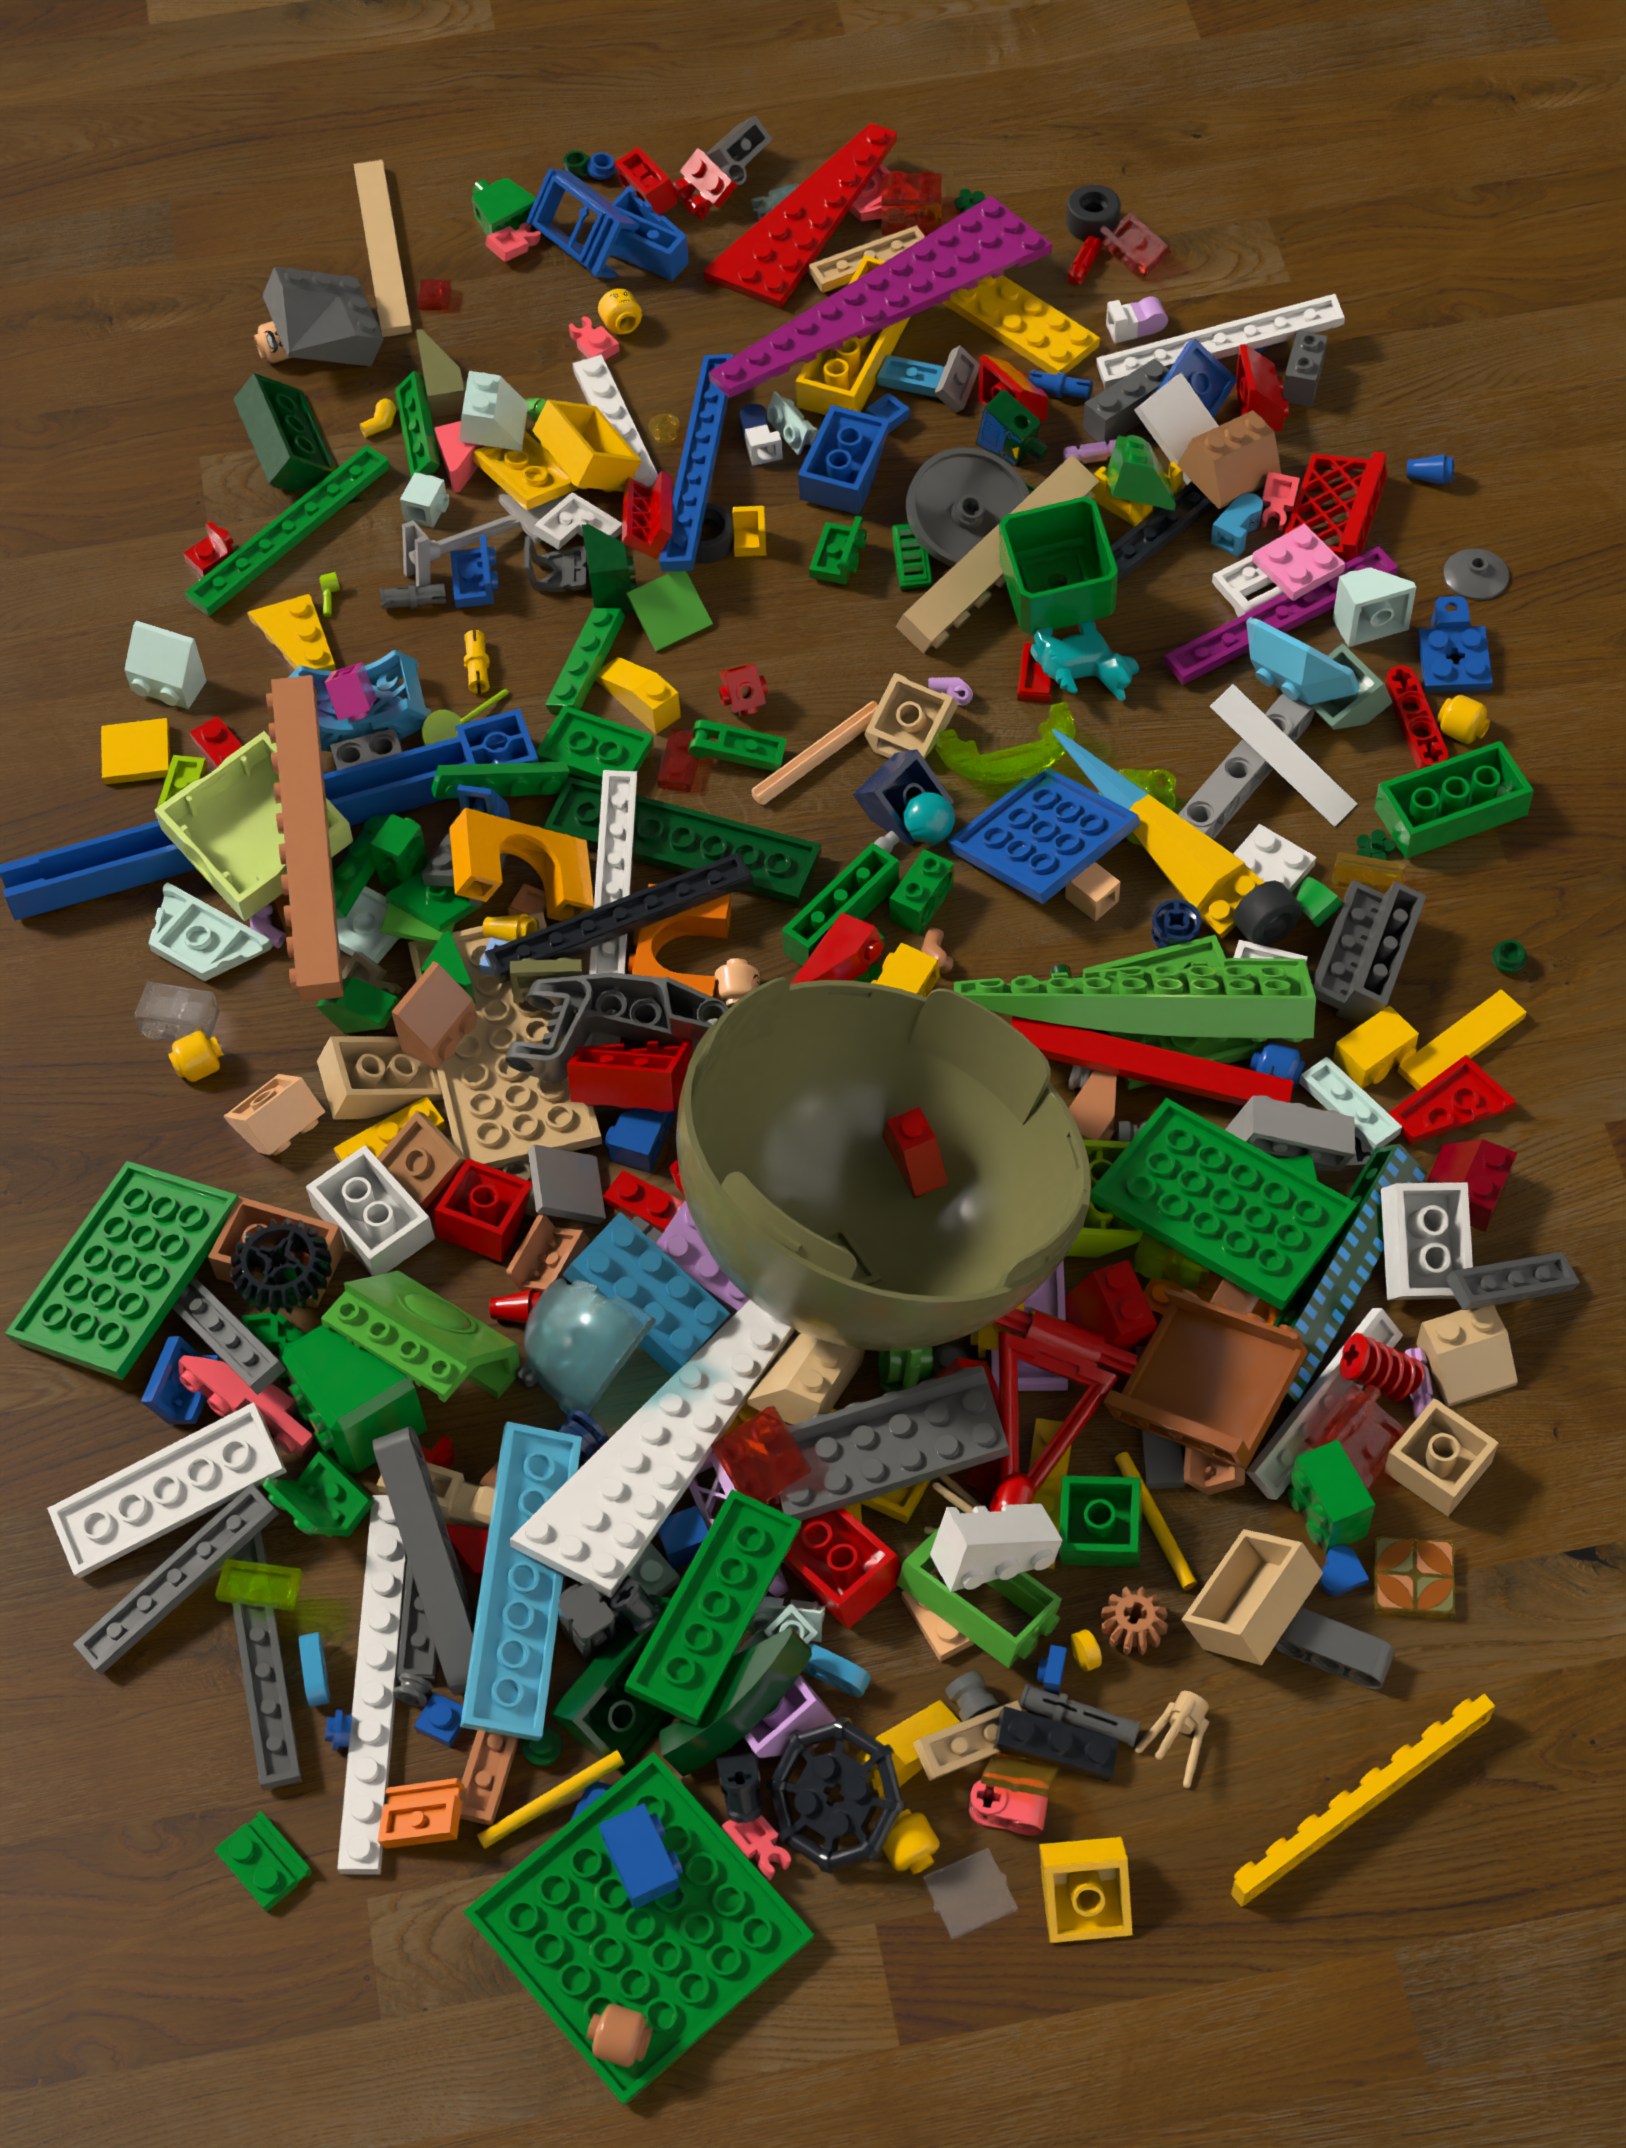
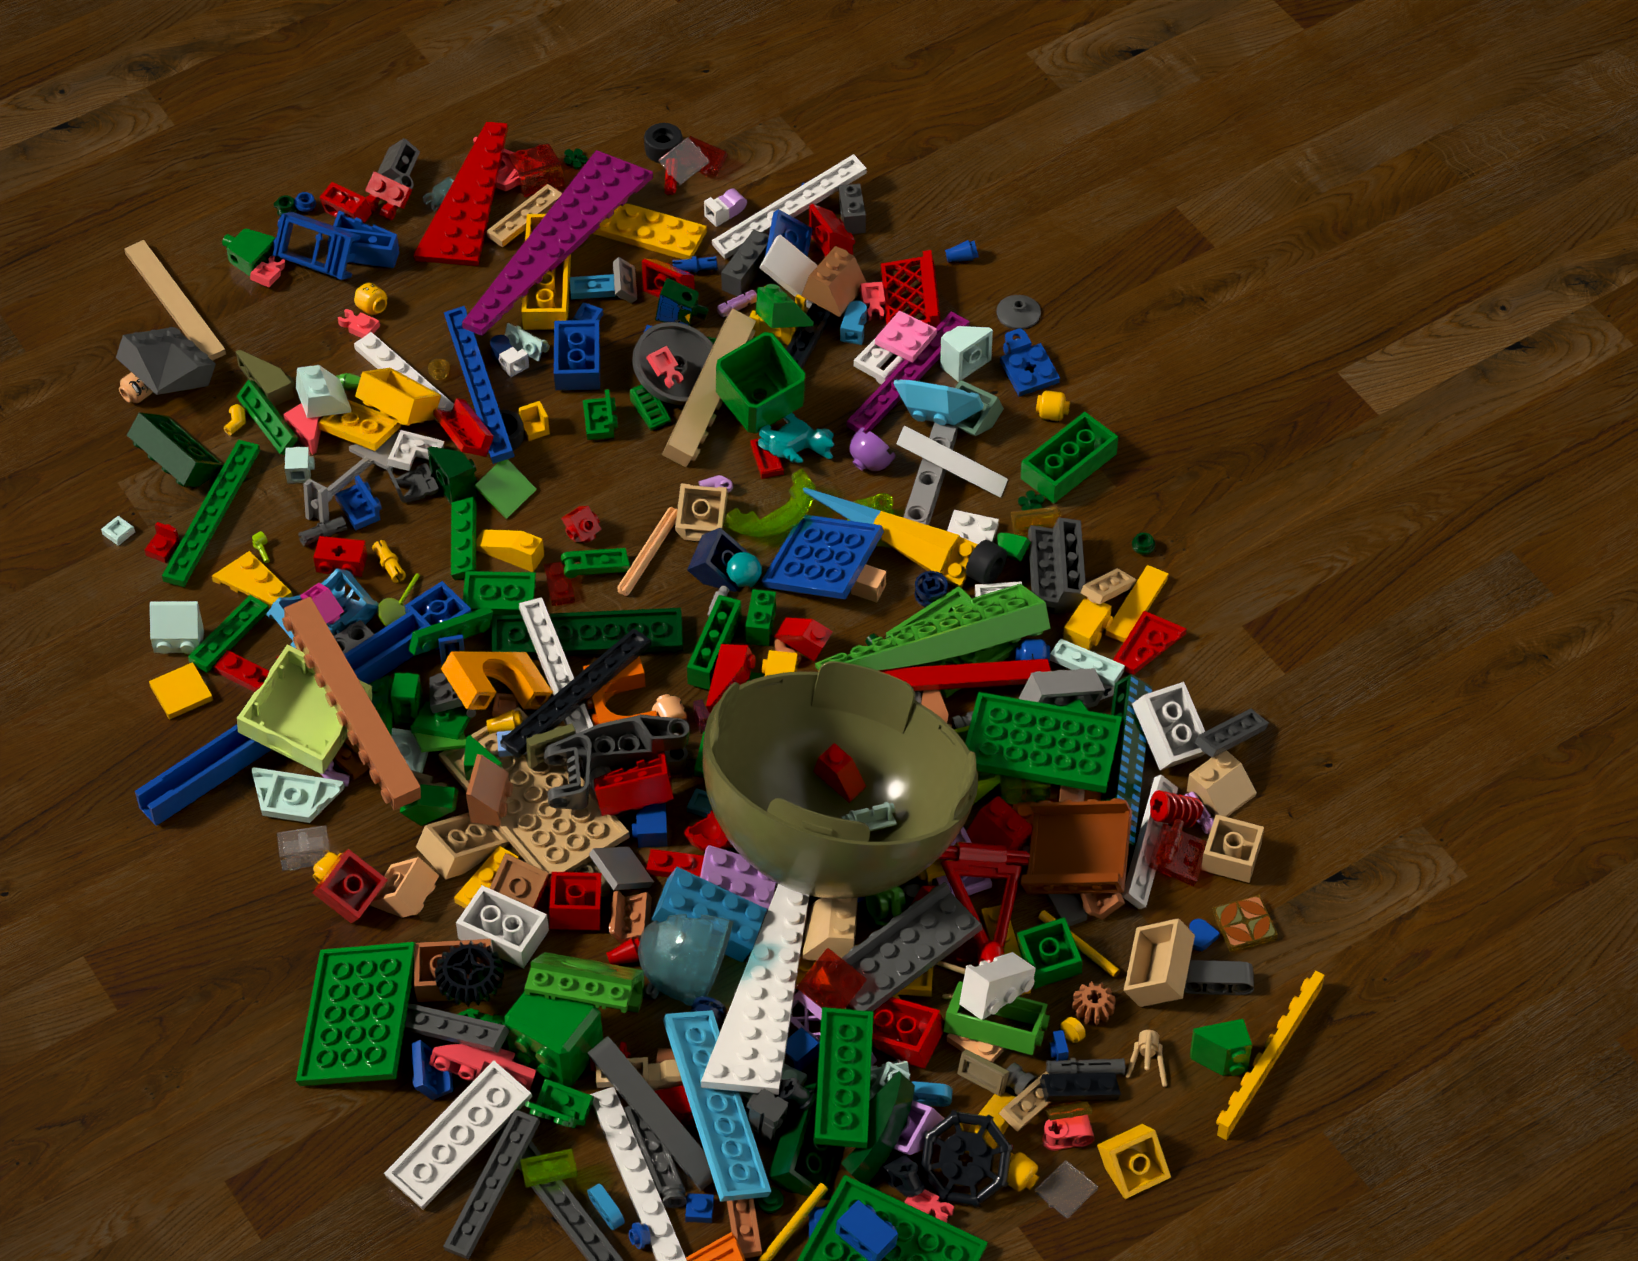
camera: 25 degrees left, 5 degrees down
(167, 518) = (118, 530): none -> light aqua tile
(181, 773) = (227, 702): lime plate -> none
(199, 1086) = (349, 886): none -> red brick
(226, 694) = (228, 633): none -> green plate
(417, 635) = (340, 554): none -> red brick
(434, 294) = (229, 323): clear red plate -> none
(925, 1668) = (983, 1072): none -> dark tan tile
(930, 1234) = (876, 818): none -> light aqua hinge
(948, 503) = (664, 364): none -> coral plate
(967, 937) = (804, 636): none -> red slope
(1105, 243) = (683, 161): none -> clear piece
(1175, 707) = (870, 451): none -> medium lavender cylinder
(1291, 1763) = (1222, 1047): none -> green slope
(1330, 1497) = (1179, 891): green brick -> none
(1413, 720) = (1025, 413): red beam -> none
(1426, 1003) = (1108, 586): none -> tan plate
(1483, 1167) = (1180, 670): dark red slope -> none

